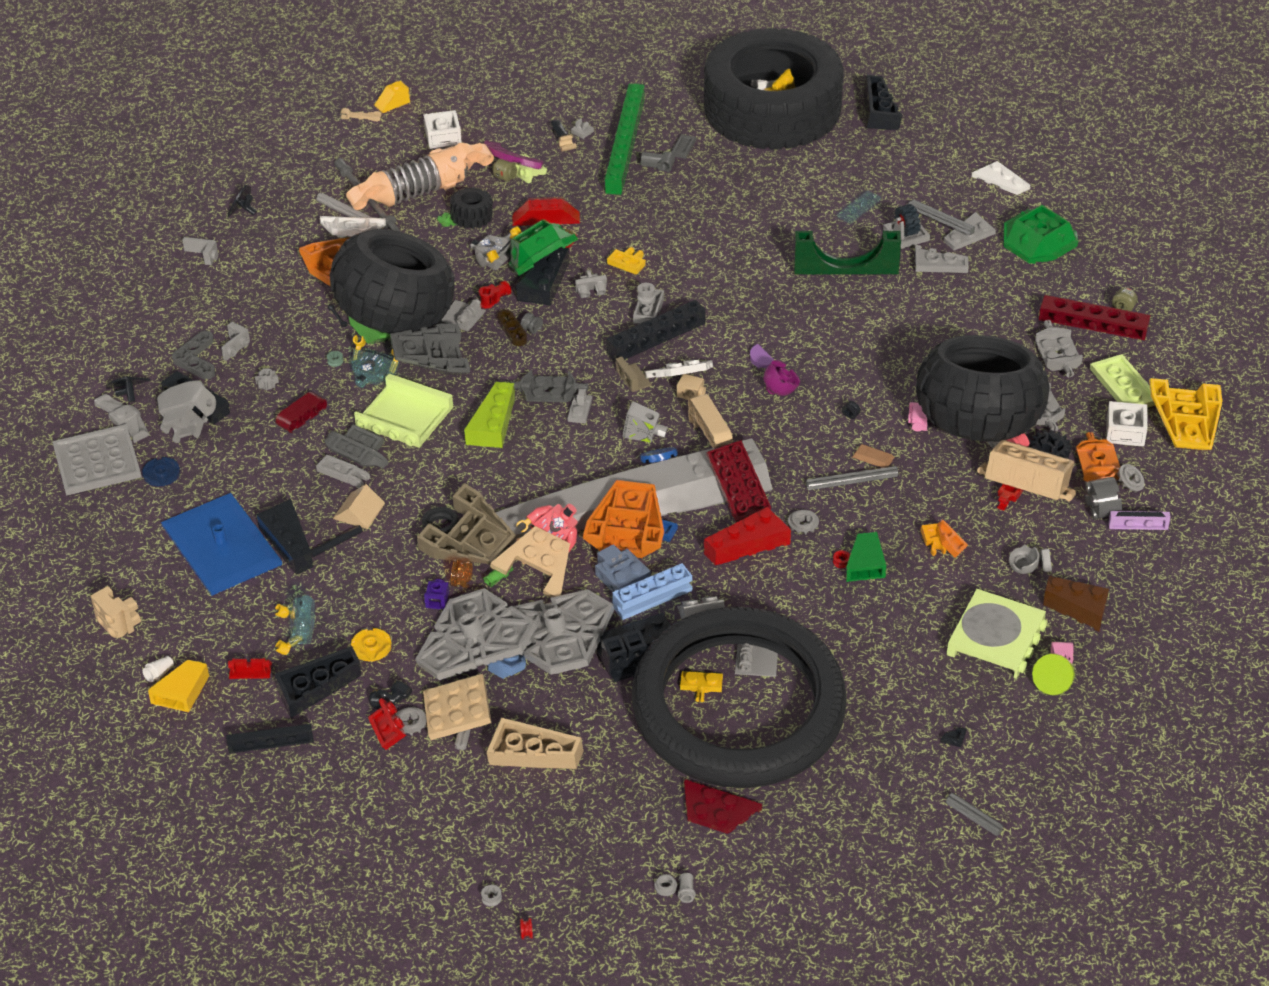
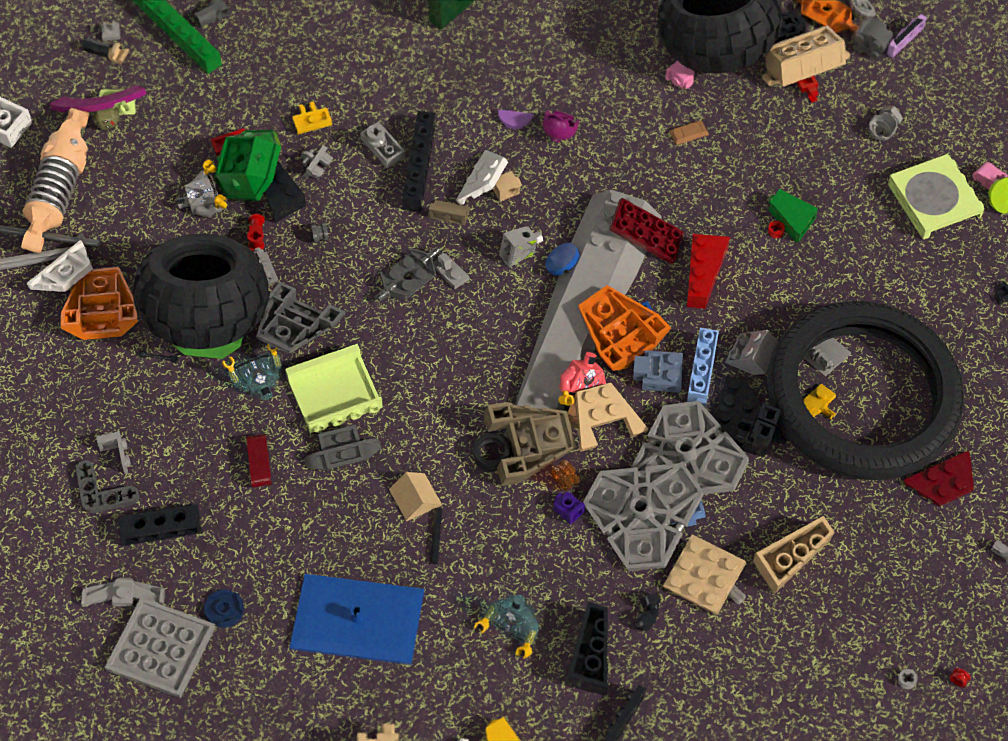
camera: 50 degrees left, 15 degrees up
(128, 382) = (90, 567): black shield -> none
(177, 405) = (178, 542): light grey piece -> none
(249, 670) = (527, 689): red hinge -> none
(266, 379) = (191, 463): light grey gear -> none
(286, 535) = (404, 566): black wedge -> none
(336, 362) = (209, 396): sand green bush -> none
(342, 471) = (360, 478): light grey hinge -> none
(371, 644) = (579, 593): yellow tile -> none
(387, 724) = (681, 634): red bracket -> none
(417, 716) = (683, 607): light grey gear -> none
(446, 220) = (120, 199): bright green plant -> none
(471, 207) = (136, 183): black tyre -> none
(492, 418) = (409, 336): lime wedge -> none
(495, 576) = (584, 456): bright green pin -> none
(512, 322) = (308, 243): dark brown beam -> none
(551, 209) = (189, 128): red wedge -> none
(665, 880) = (991, 557): light grey plate -> none
(705, 415) = (568, 200): tan beam -> none
(798, 516) = (718, 217): light grey gear -> none
(851, 409) = (631, 108): black bush -> none
(851, 478) = (699, 161): axle -> none
(932, 537) = (808, 160): light orange plate -> none
(950, 539) = (822, 152): orange tile -> none
(1077, 600) = (951, 128): reddish brown wedge -> none

